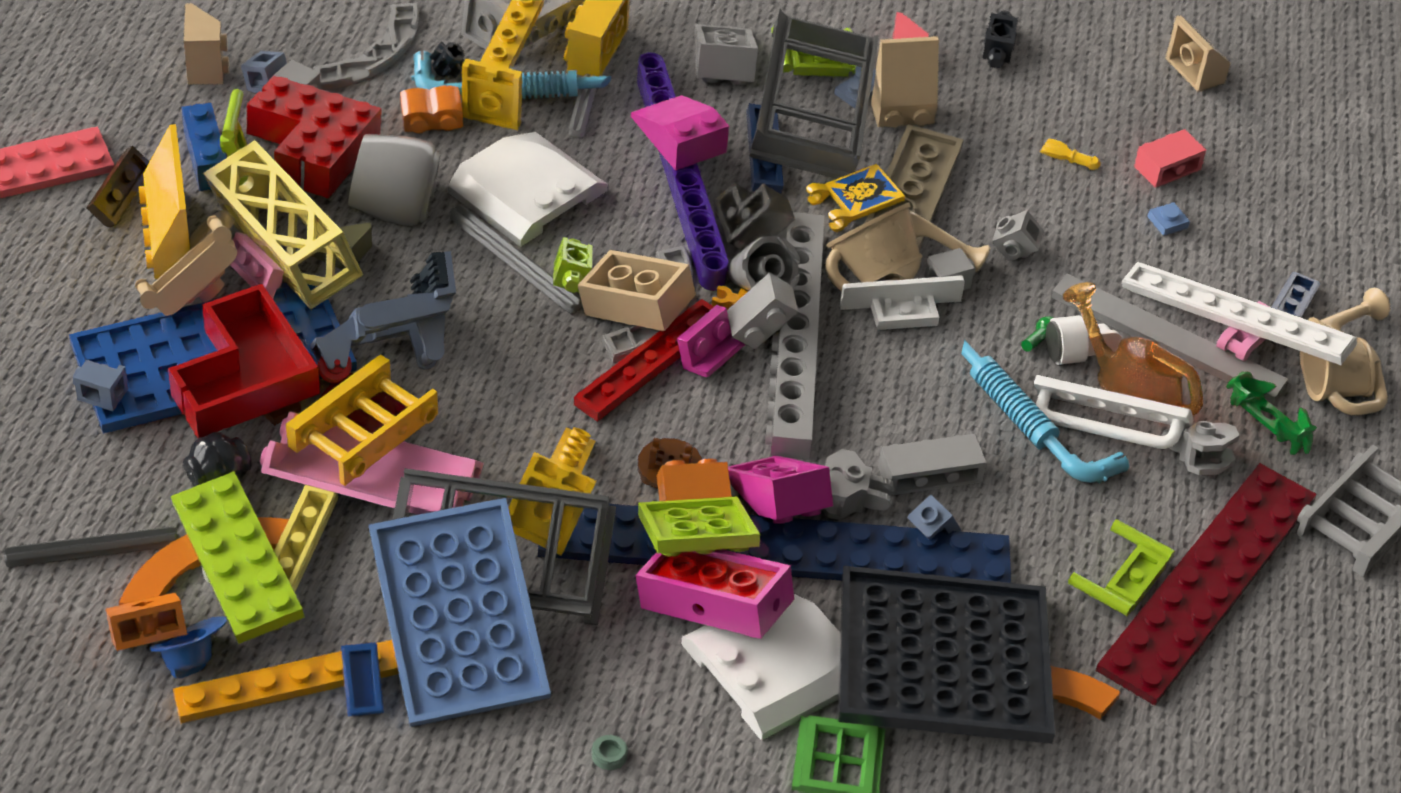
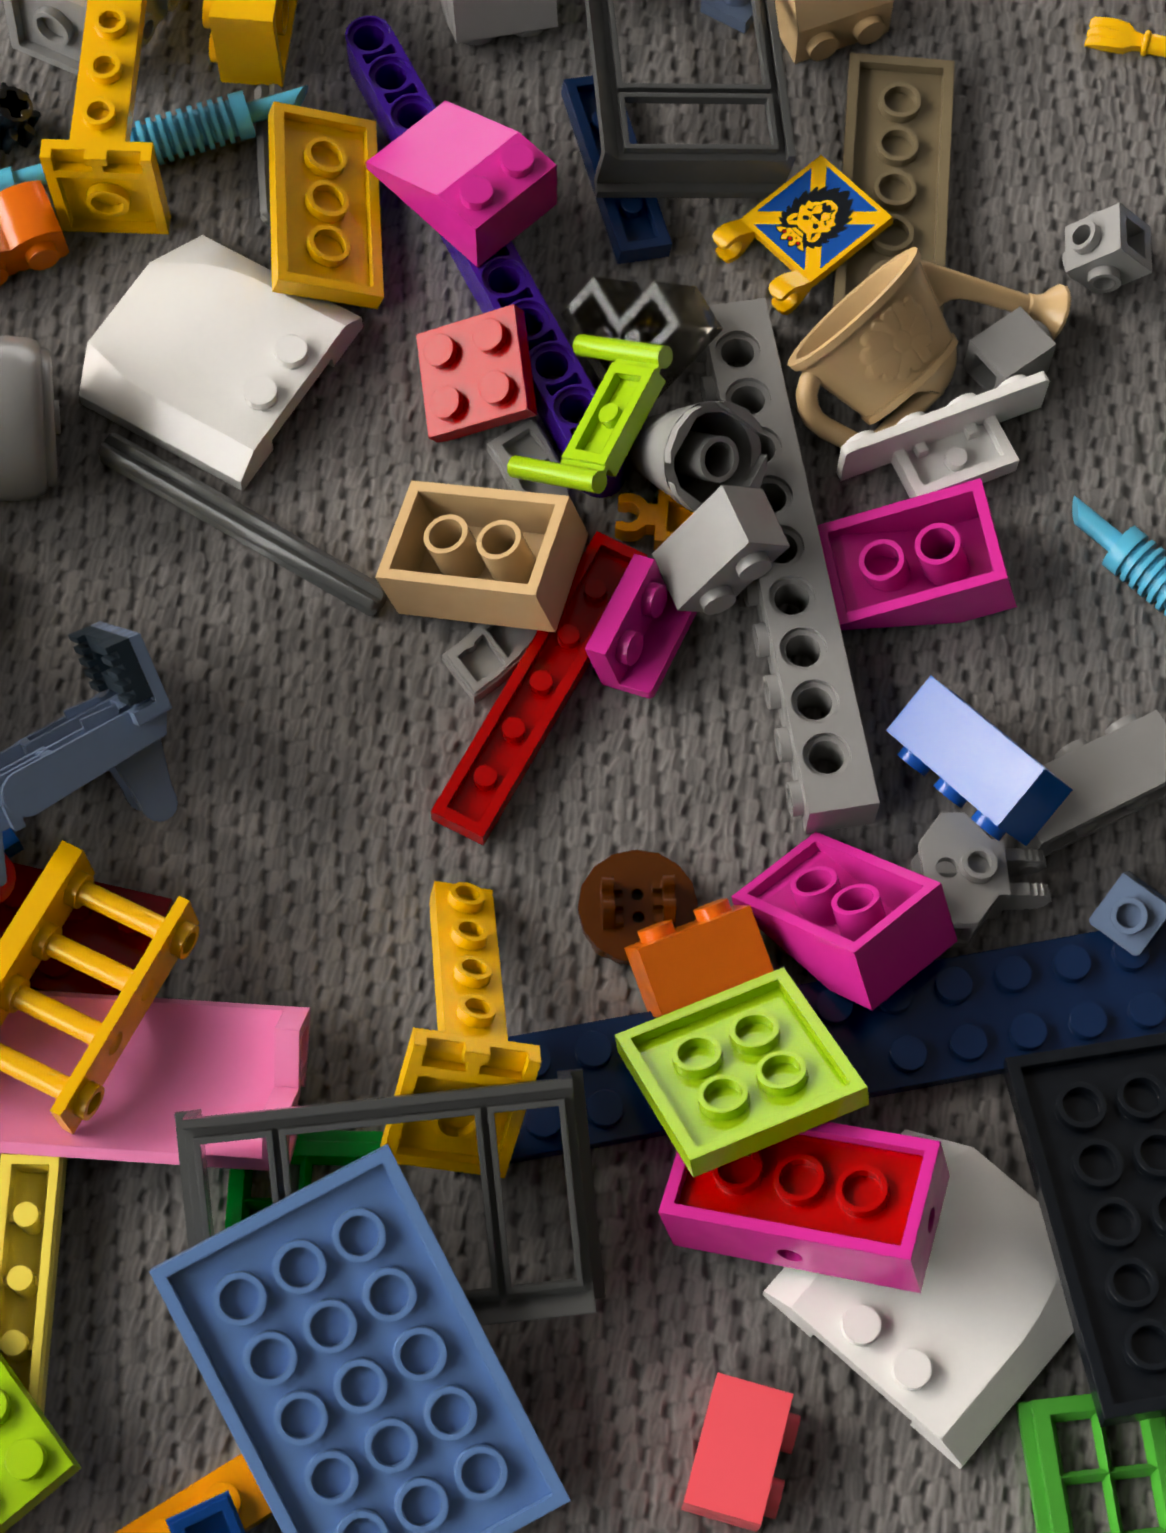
camera: 10 degrees left, 20 degrees up
(572, 264) = (350, 522): lime piece -> none
(603, 130) = (324, 206): none -> yellow plate
(645, 698) = (740, 1452): none -> coral brick
(659, 217) = (476, 374): none -> plate
(724, 242) = (611, 418): none -> lime plate
(868, 431) = (976, 763): none -> brick
(870, 347) = (918, 561): none -> dark pink slope

